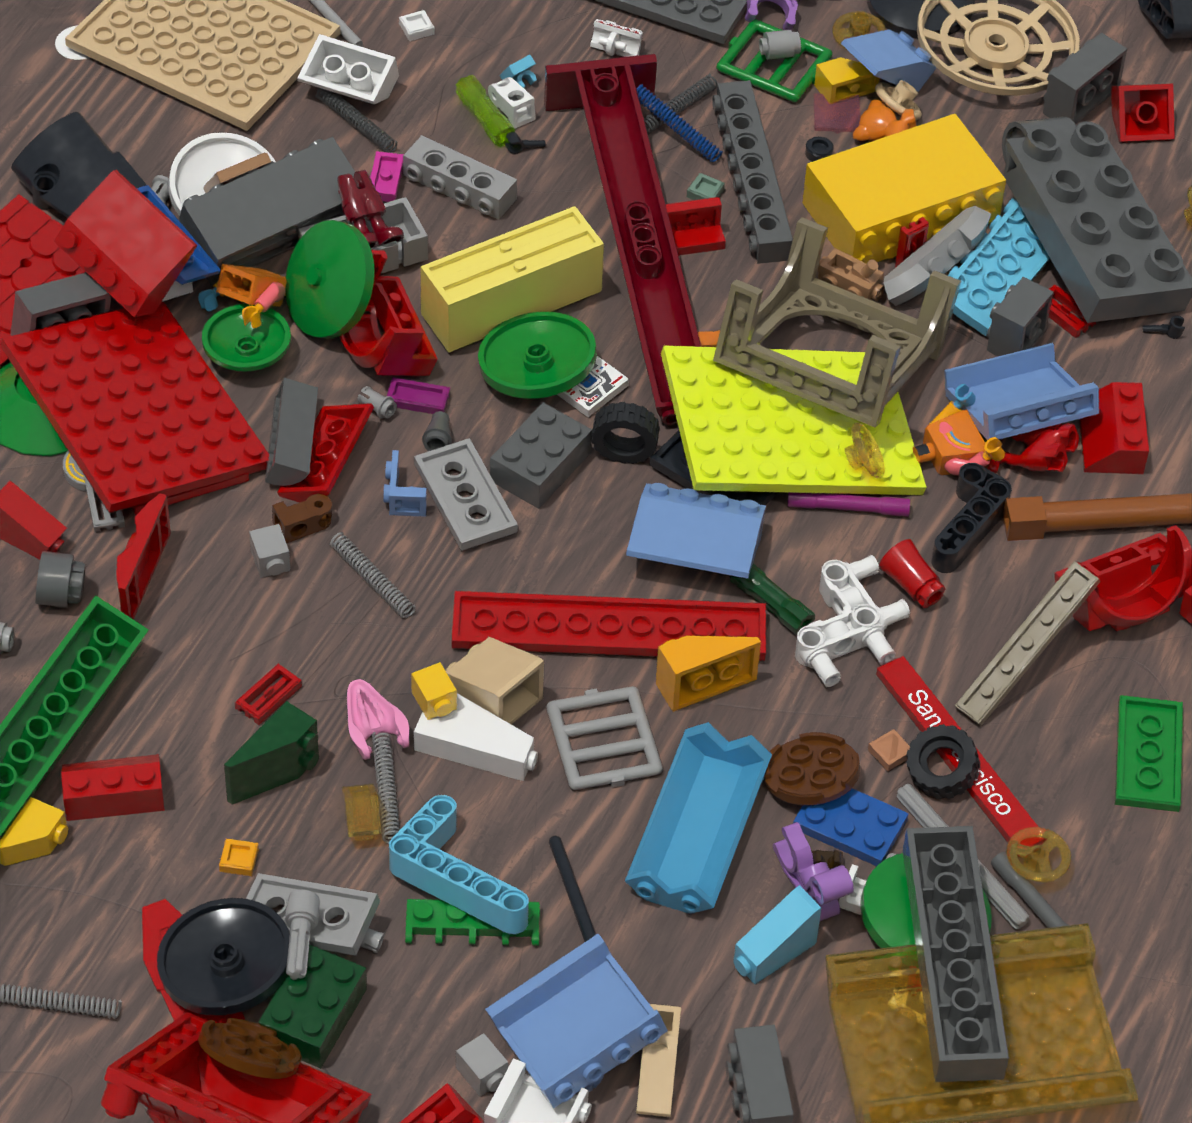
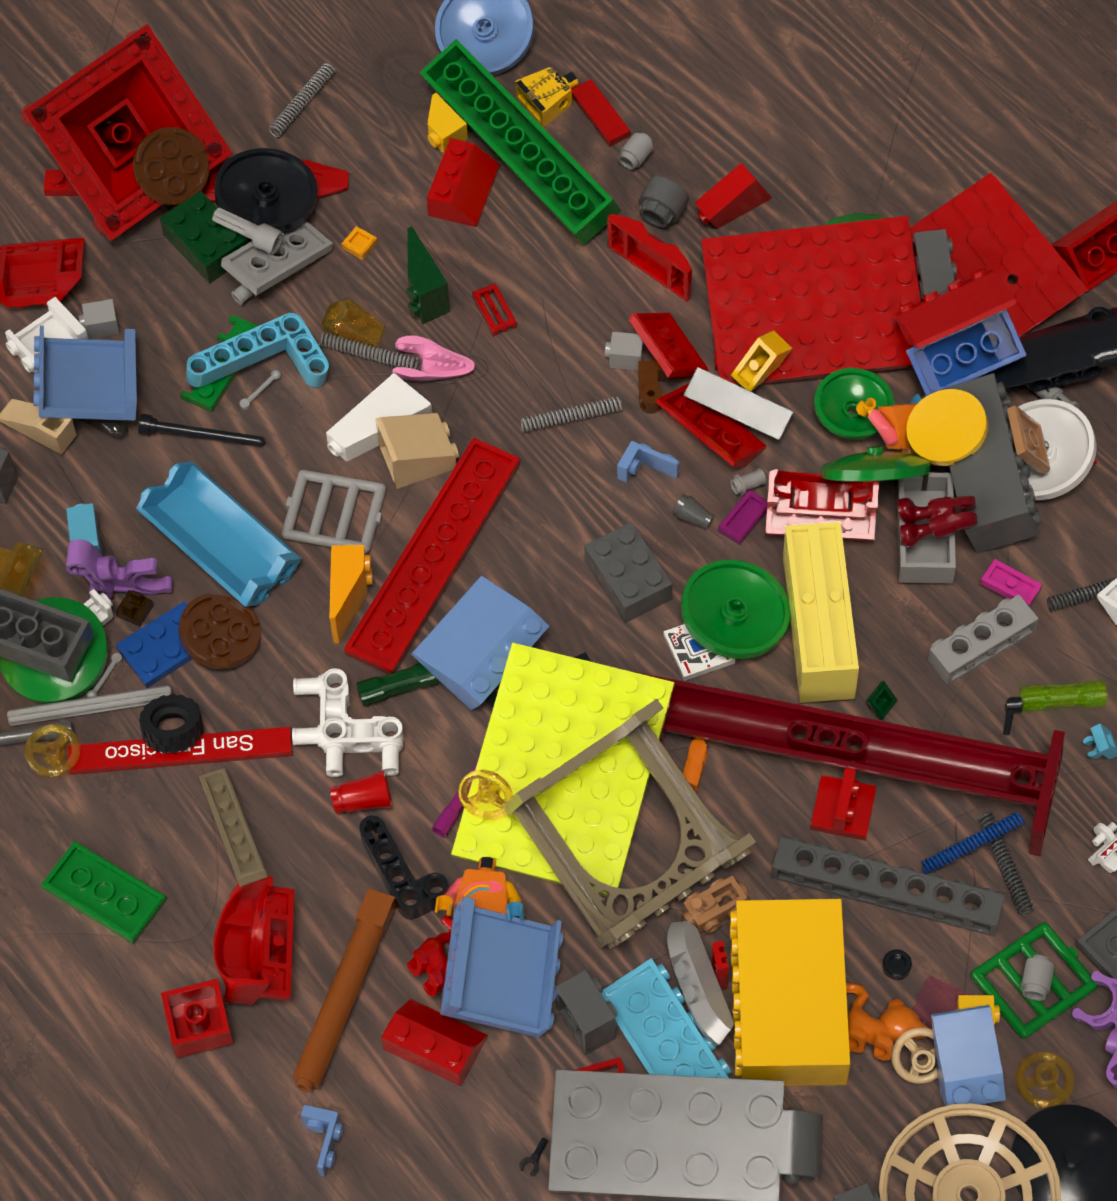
camera: 120 degrees right, 10 degrees up
(238, 413) = (761, 360): none -> yellow slope
(247, 512) = (667, 344): none -> red tile
(259, 229) = (947, 426): none -> yellow tile
(434, 691) = (412, 389): yellow brick -> none
(457, 509) = (606, 493): light grey plate -> none
(512, 878) = (245, 403): none -> light grey hinge
(513, 101) = (1068, 718): white leg -> none
(629, 417) = (610, 633): black tyre -> none
(705, 187) = (887, 842): sand green tile -> none
(889, 750) = (212, 702): nougat tile -> none

